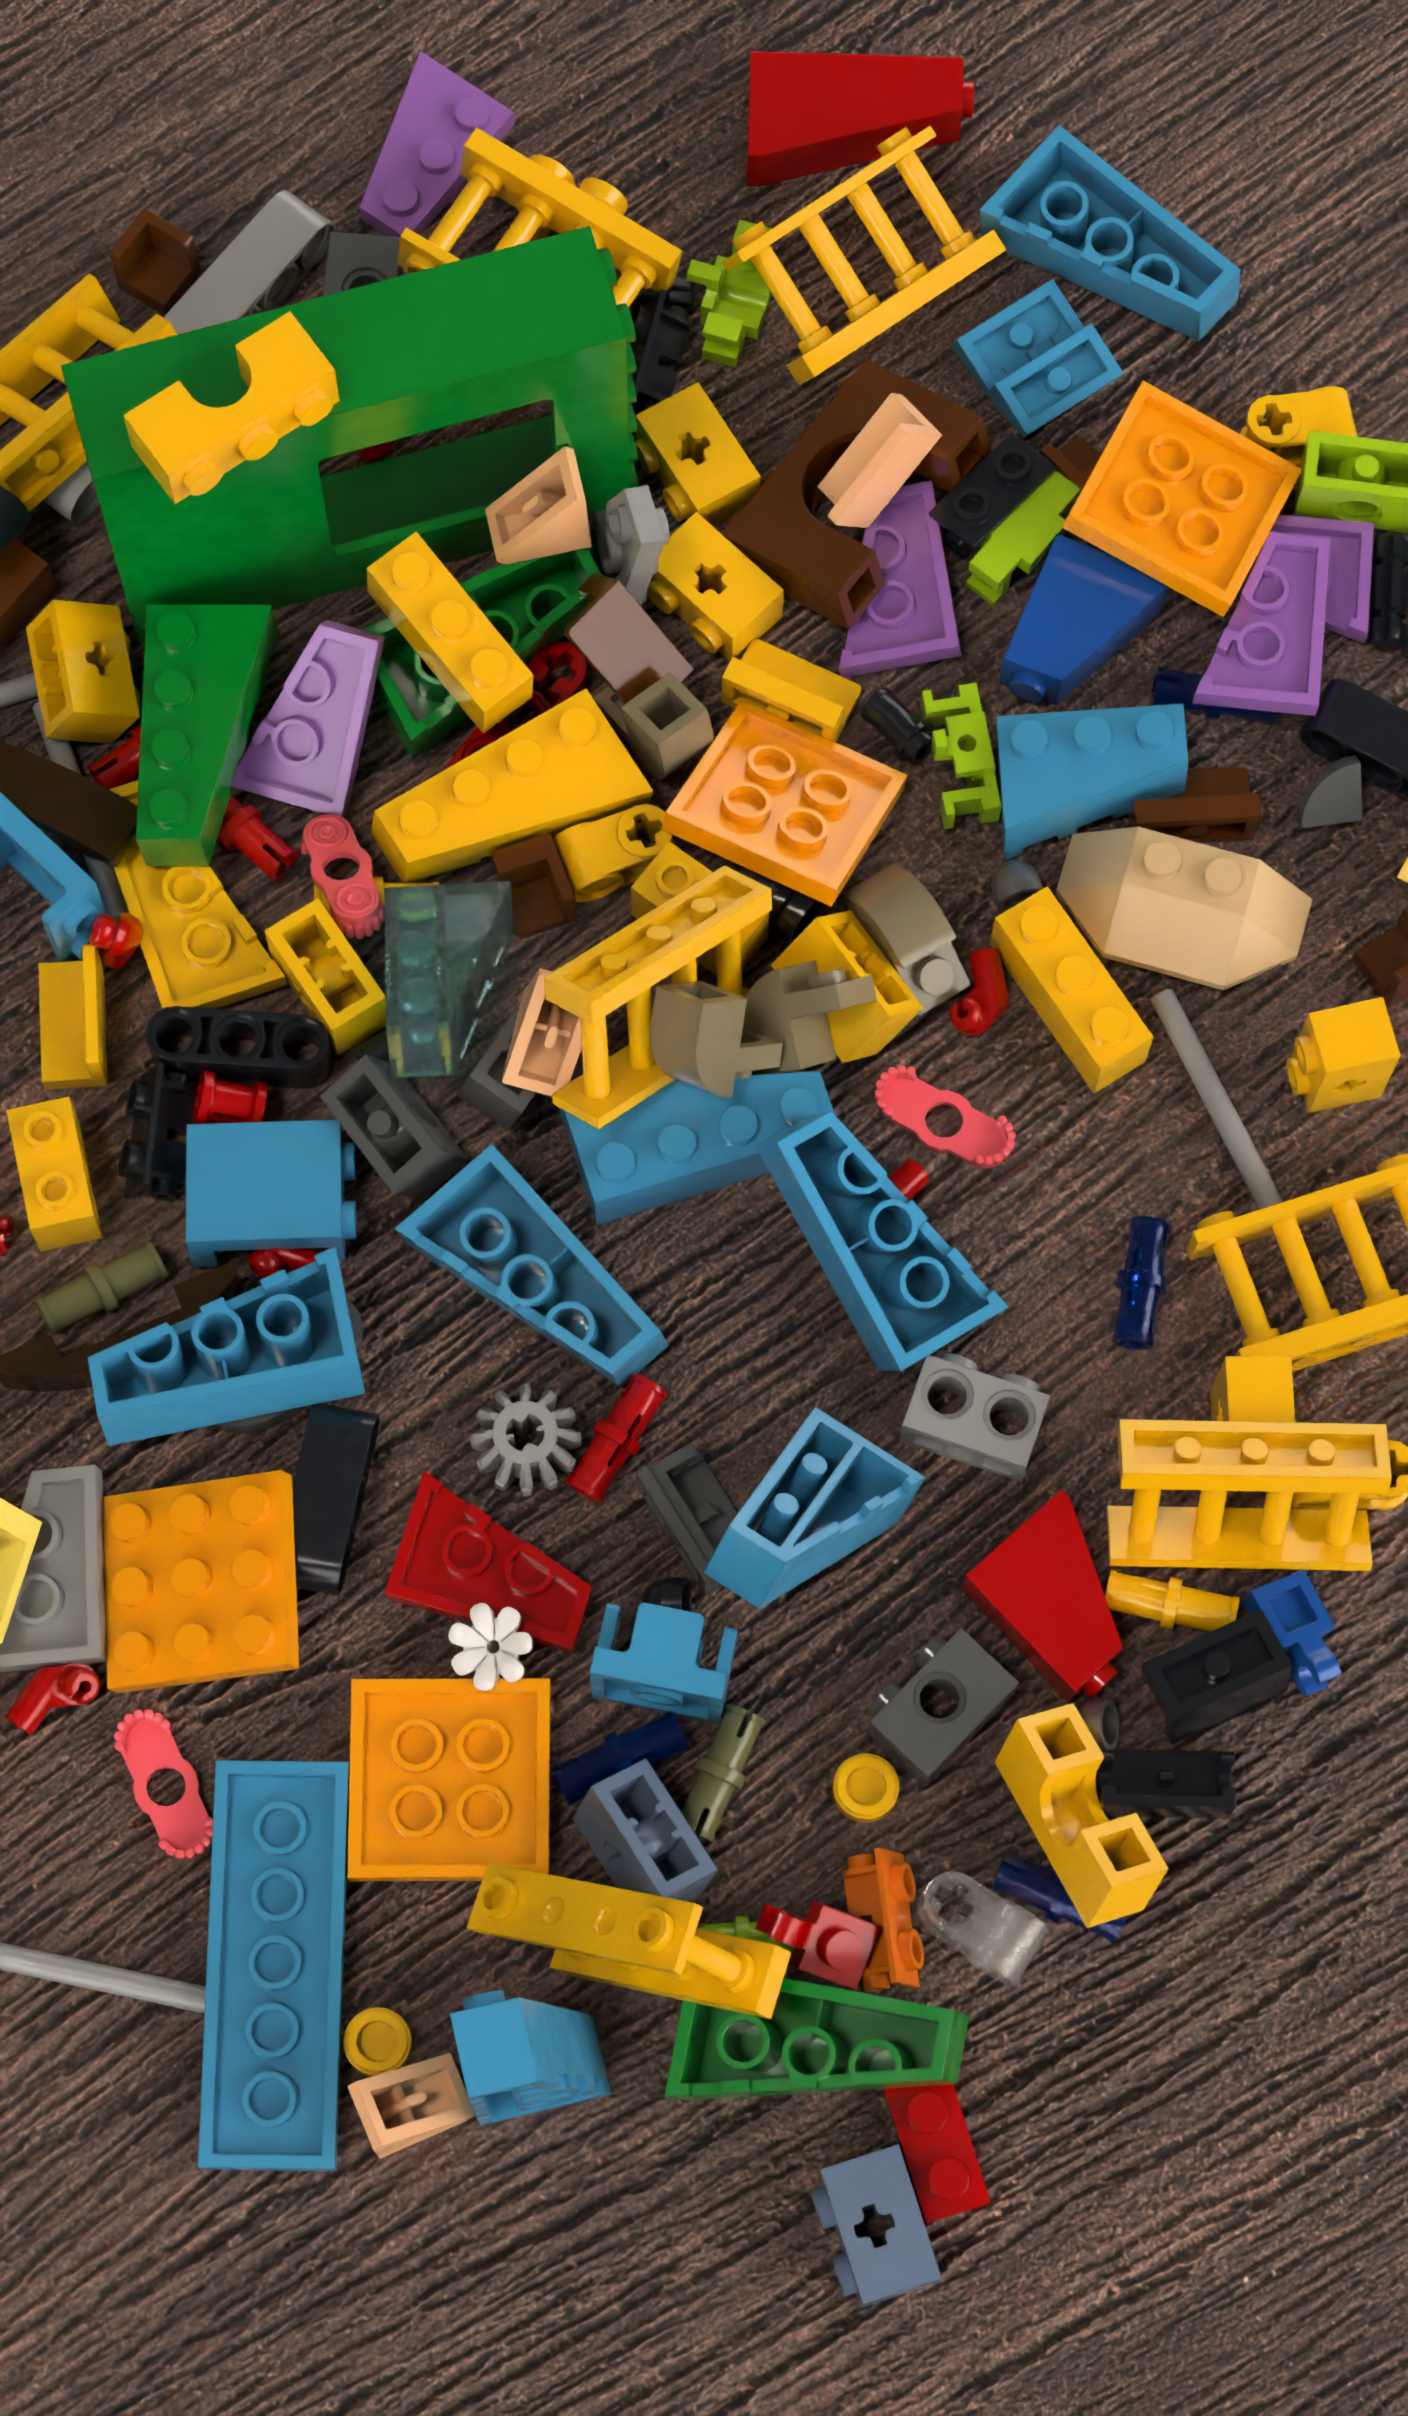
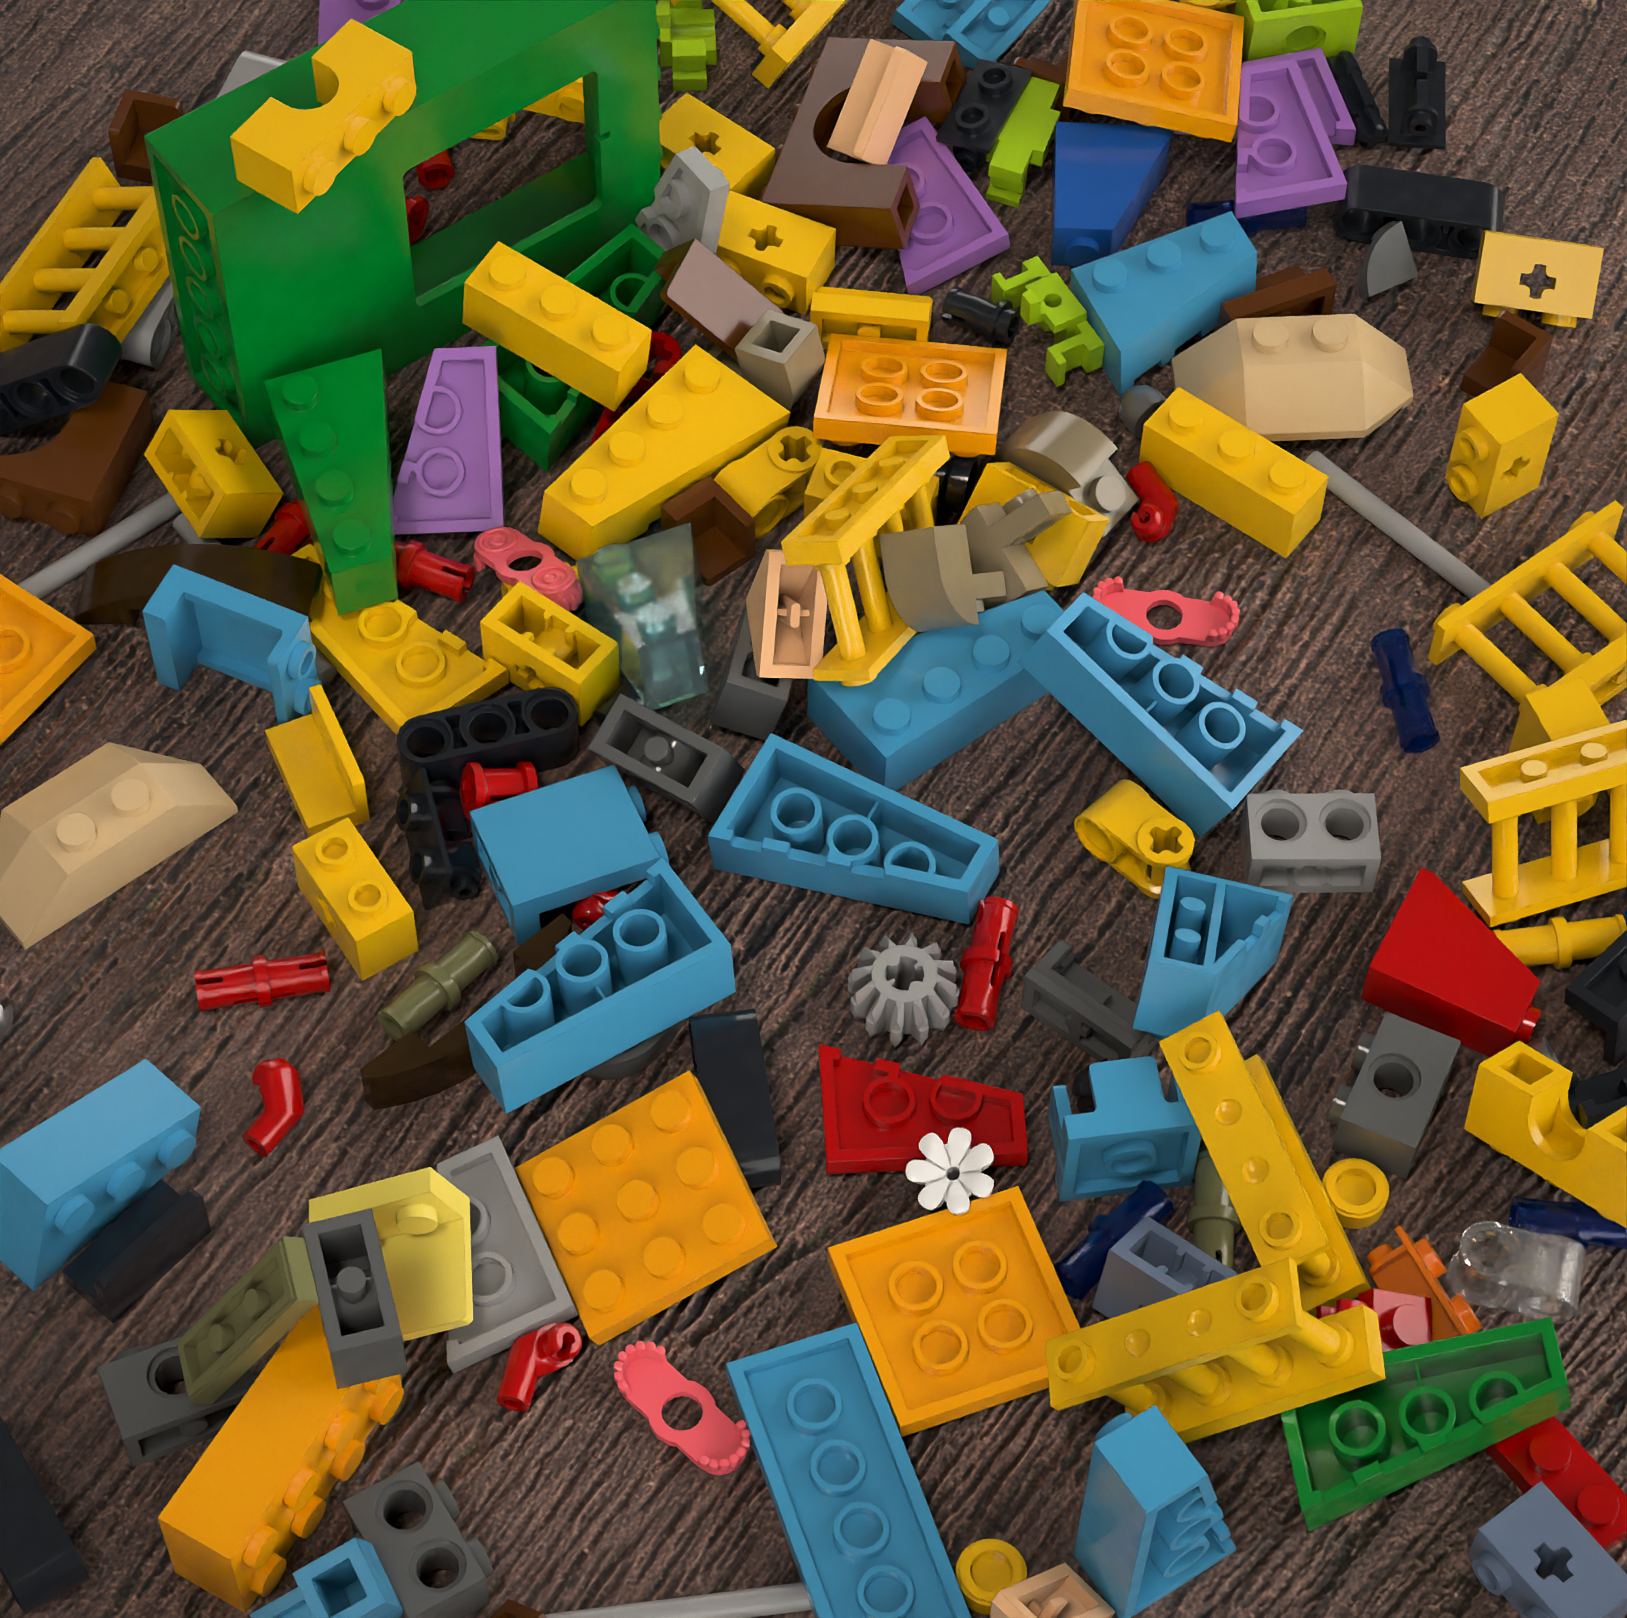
camera: 20 degrees left, 15 degrees down
(116, 938) = (339, 675): red arm -> none
(541, 513) = (602, 208): light nougat slope -> none
(772, 1750) = (1263, 1162): none -> yellow fence
(808, 1349) = (1135, 834): none -> yellow piece

